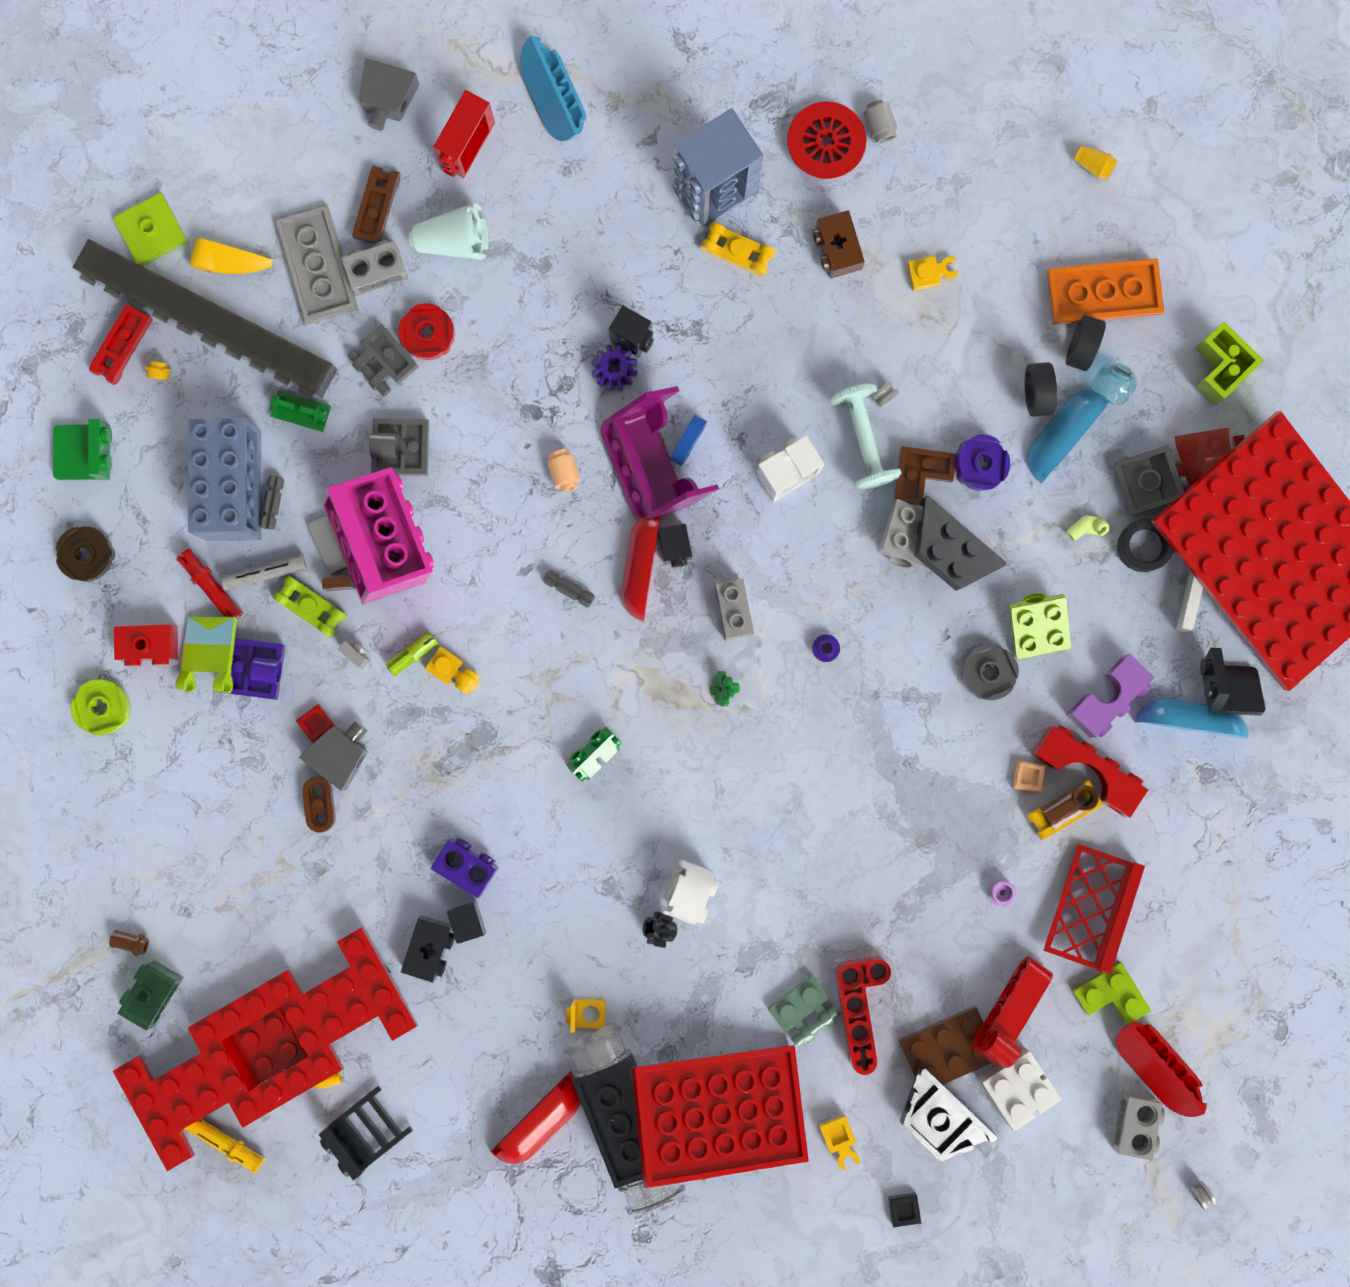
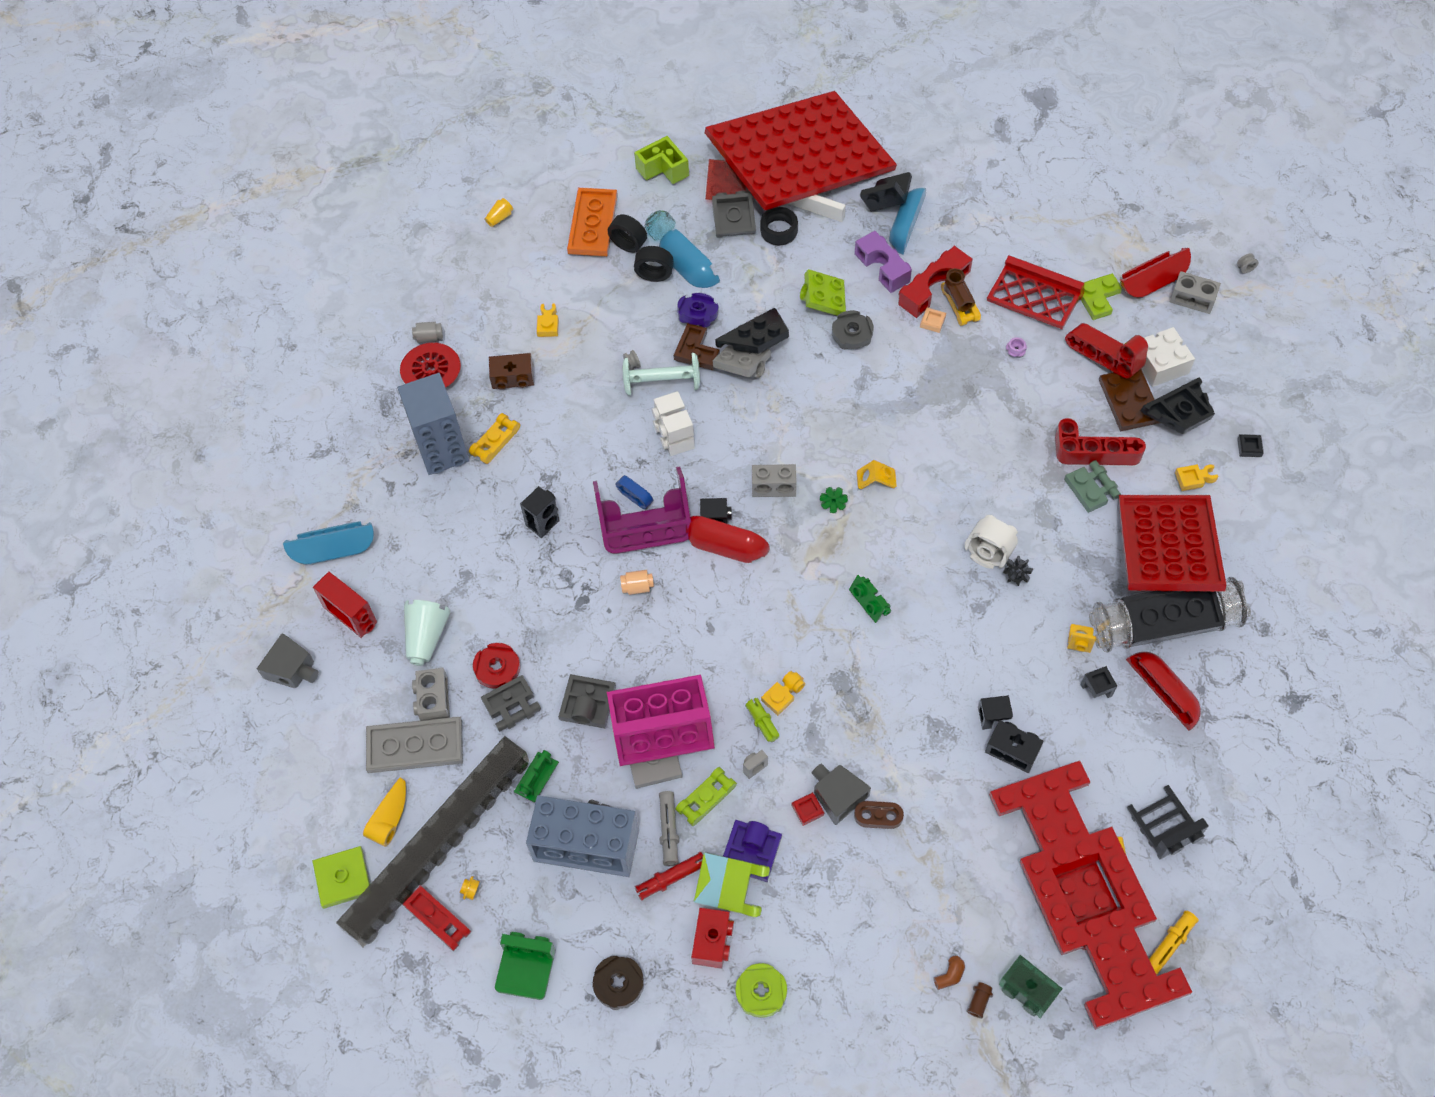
camera: 75 degrees left, 25 degrees down
(152, 910) = (953, 975): none -> dark orange arm
(337, 583) = (691, 767): reddish brown tile -> none
(376, 205) = (380, 687): reddish brown plate -> none
(461, 874) = (952, 708): dark purple brick -> none
(521, 1041) = (1099, 682): none -> black panel
(568, 588) = (732, 596): dark grey axle -> none
(603, 370) = (564, 533): dark purple gear -> none
(768, 739) = (877, 472): none -> yellow bracket
(819, 654) = (815, 433): dark purple plate -> none
(1088, 524) = (757, 257): yellowish green arm -> none

